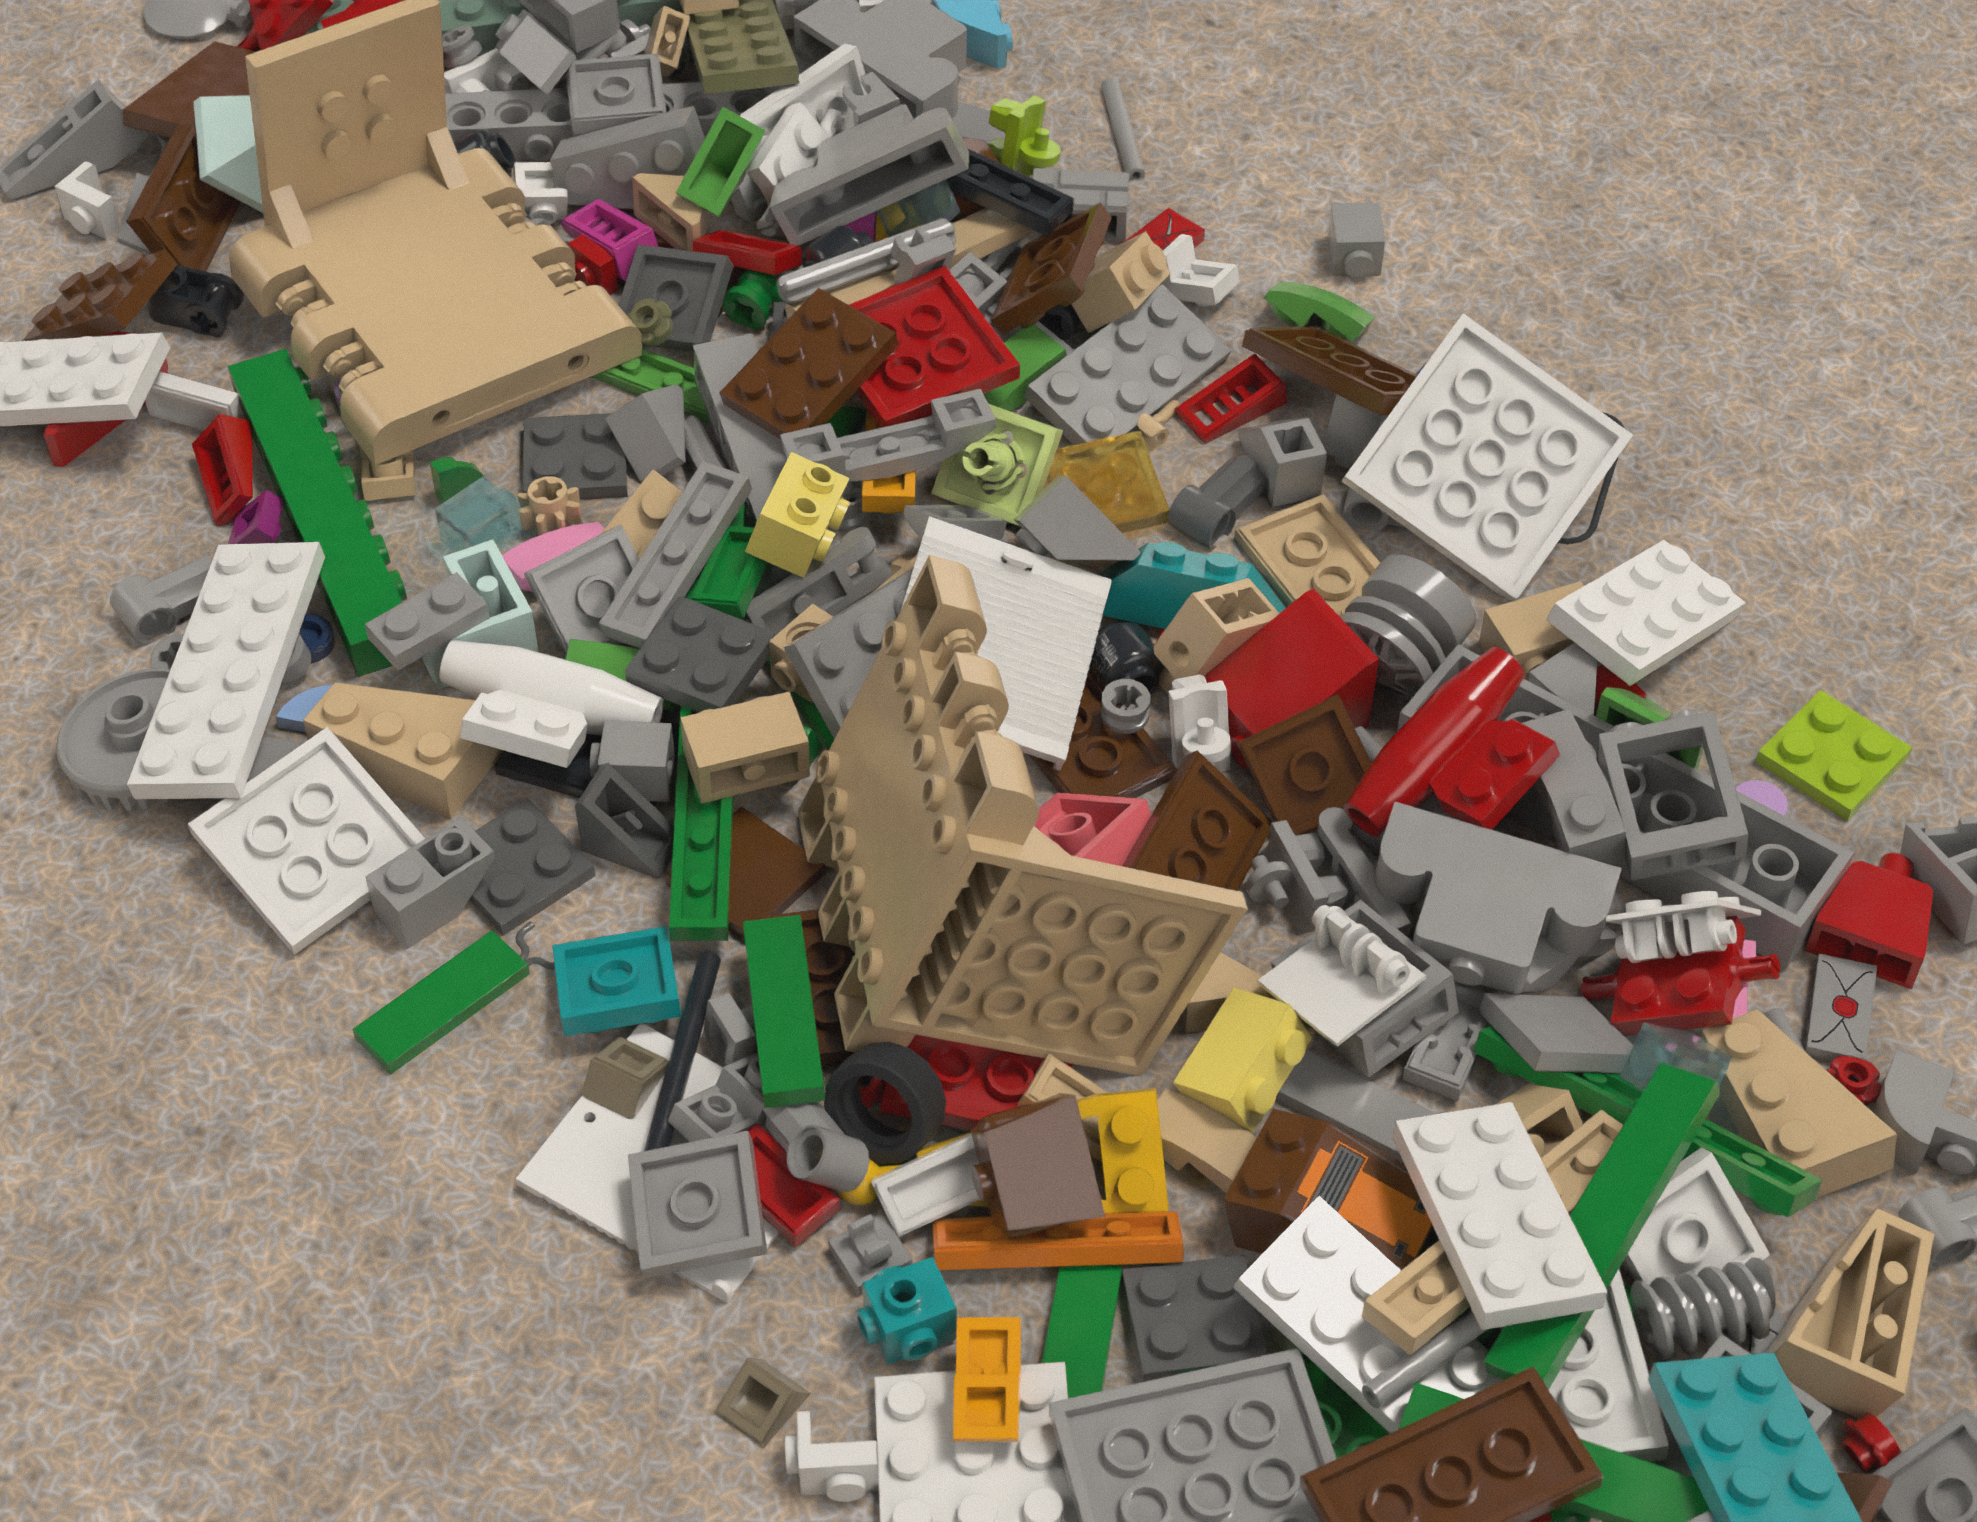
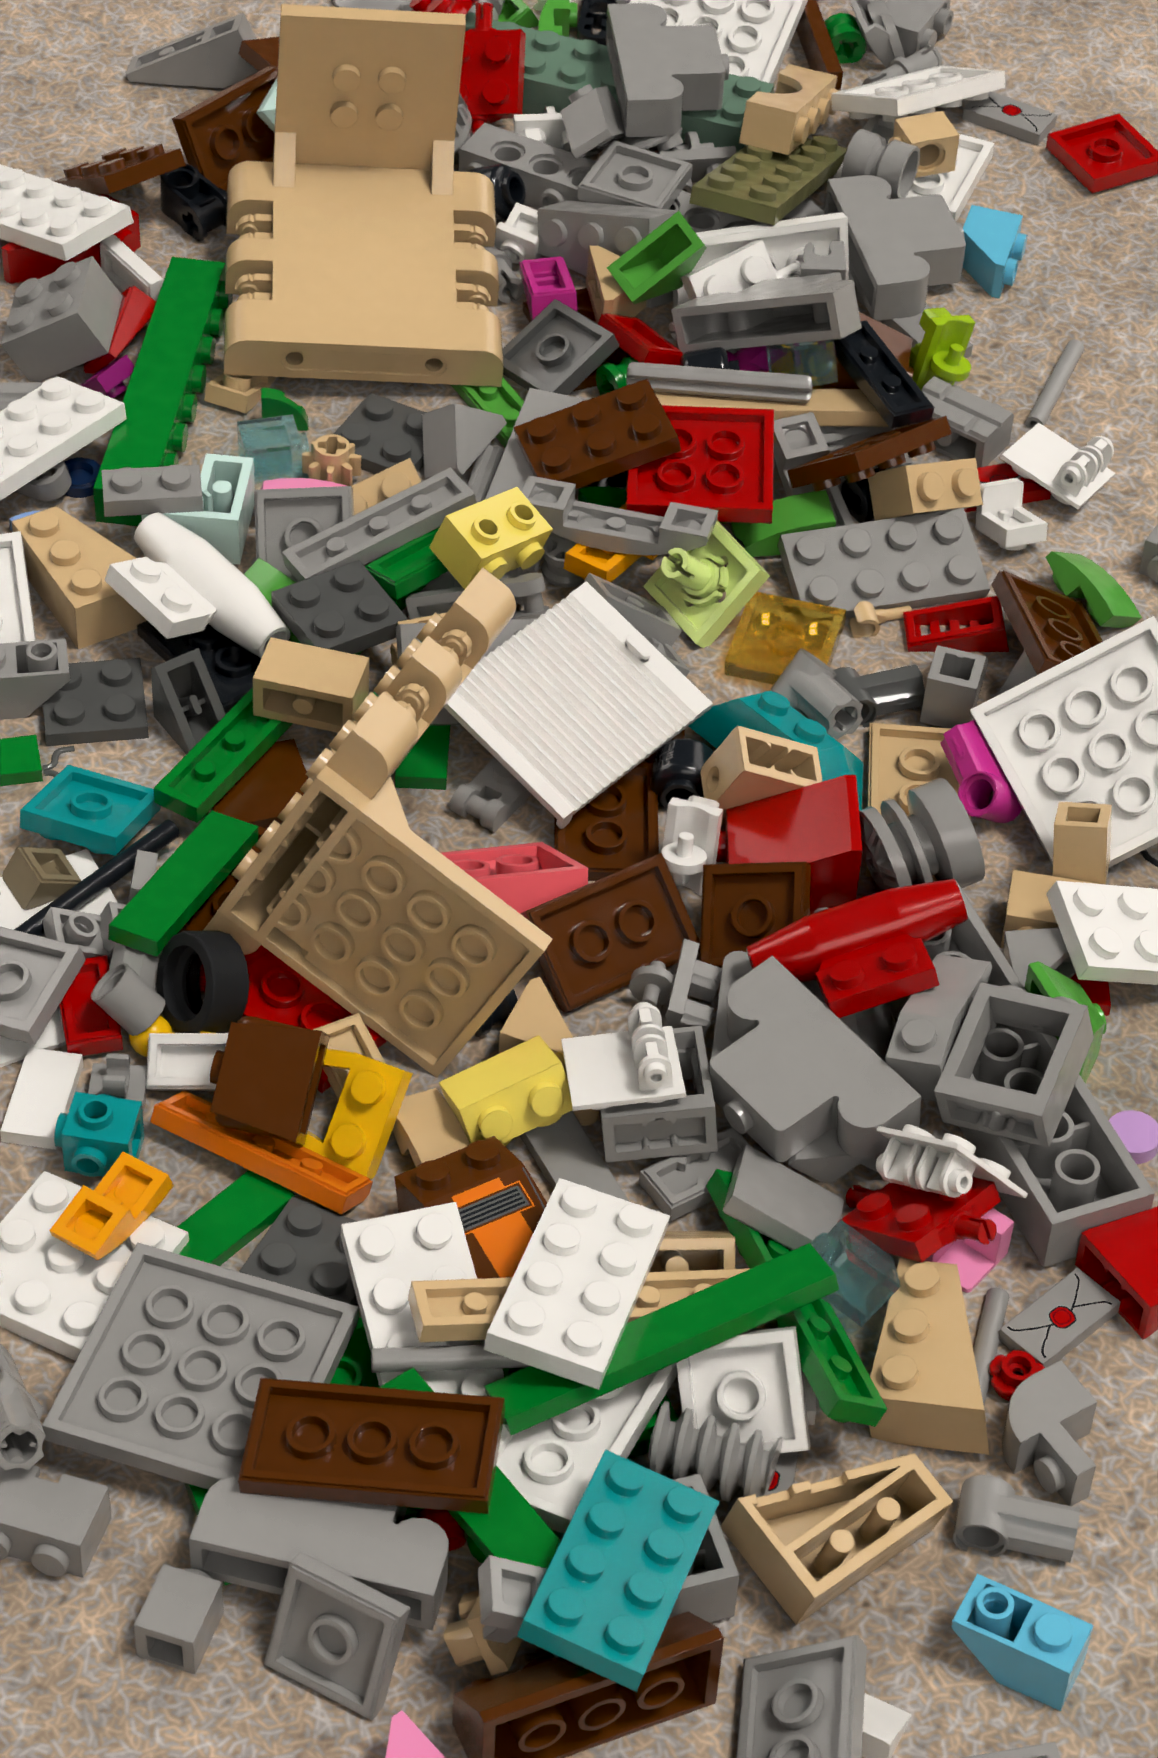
camera: 30 degrees right, 5 degrees down
(86, 204) = (174, 96): white bracket -> none
(172, 483) = (62, 320): none -> light grey brick
(459, 46) = (542, 98): light grey bush -> none
(594, 264) = (514, 304): red plate -> none
(640, 754) = (231, 659): light grey brick -> none
(660, 326) = (521, 361): olive plate -> none
(667, 38) = (713, 154): tan piece -> none
(805, 1303) = (40, 1095): none -> white tile
(923, 257) = (760, 394): light grey tile -> none
(1070, 526) = (711, 643): light grey slope -> none
(1127, 692) = (649, 793): light grey bush -> none
(1195, 527) = (815, 693): none -> light grey piece
(1200, 206) = (1060, 467): none -> white hinge
(1372, 525) = (979, 775): none -> dark pink piece
(1528, 554) = (1082, 841): none -> tan brick
(1869, 1442) = (775, 1631): red plate -> none

